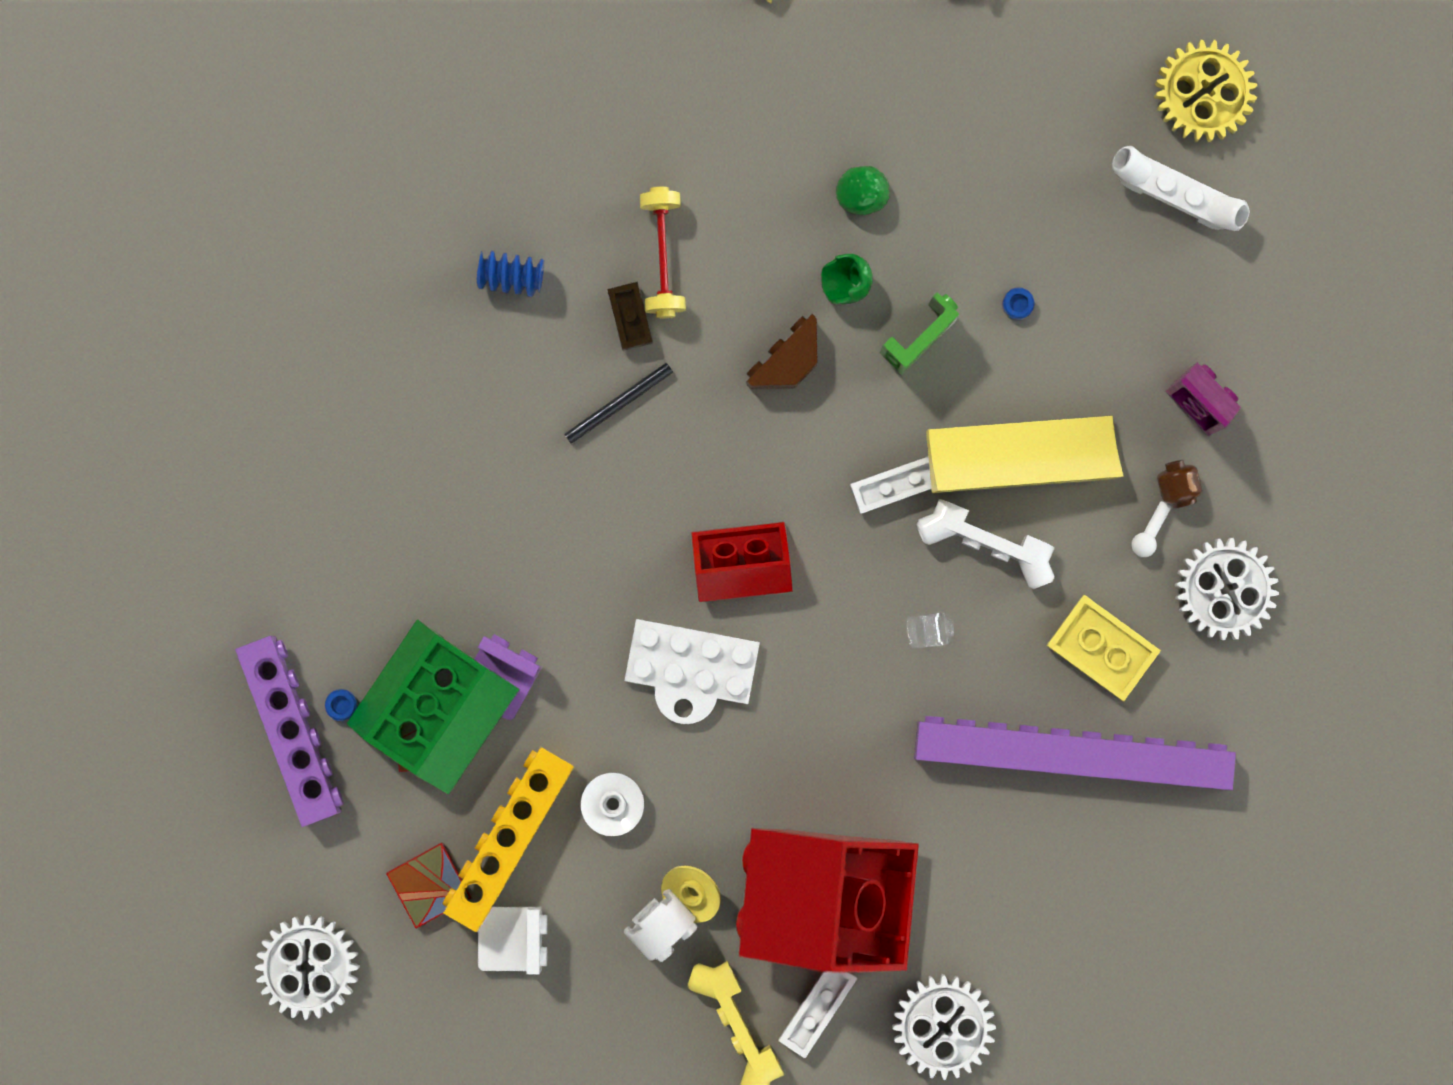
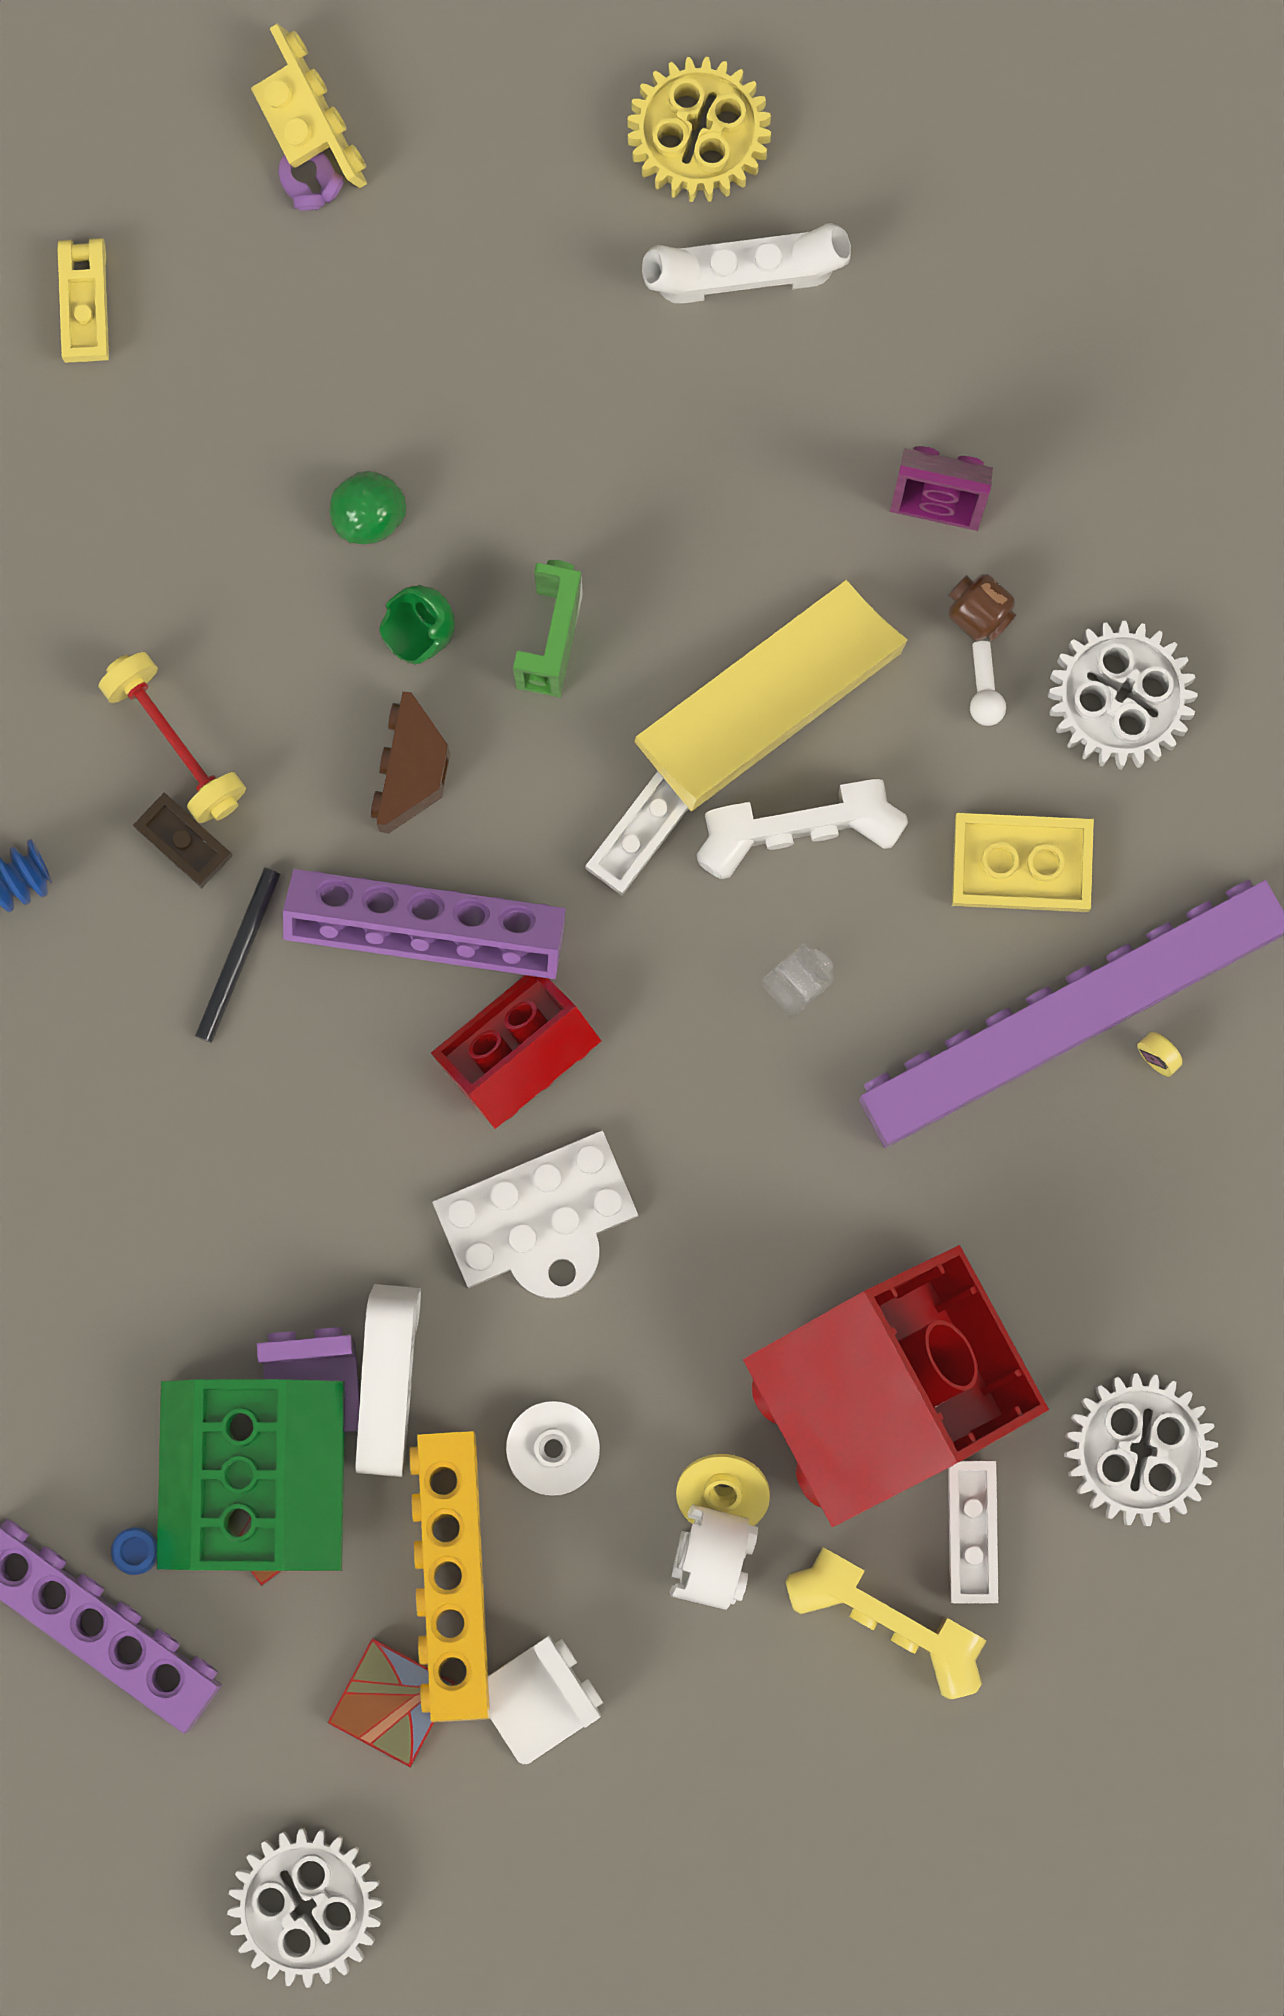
camera: 35 degrees left, 5 degrees down
(544, 703) = (387, 1379): none -> white beam
(740, 471) = (423, 923): none -> medium lavender brick
(1018, 303) = (644, 522): blue tile -> none
(1107, 810) = (1160, 1054): none -> light yellow tile

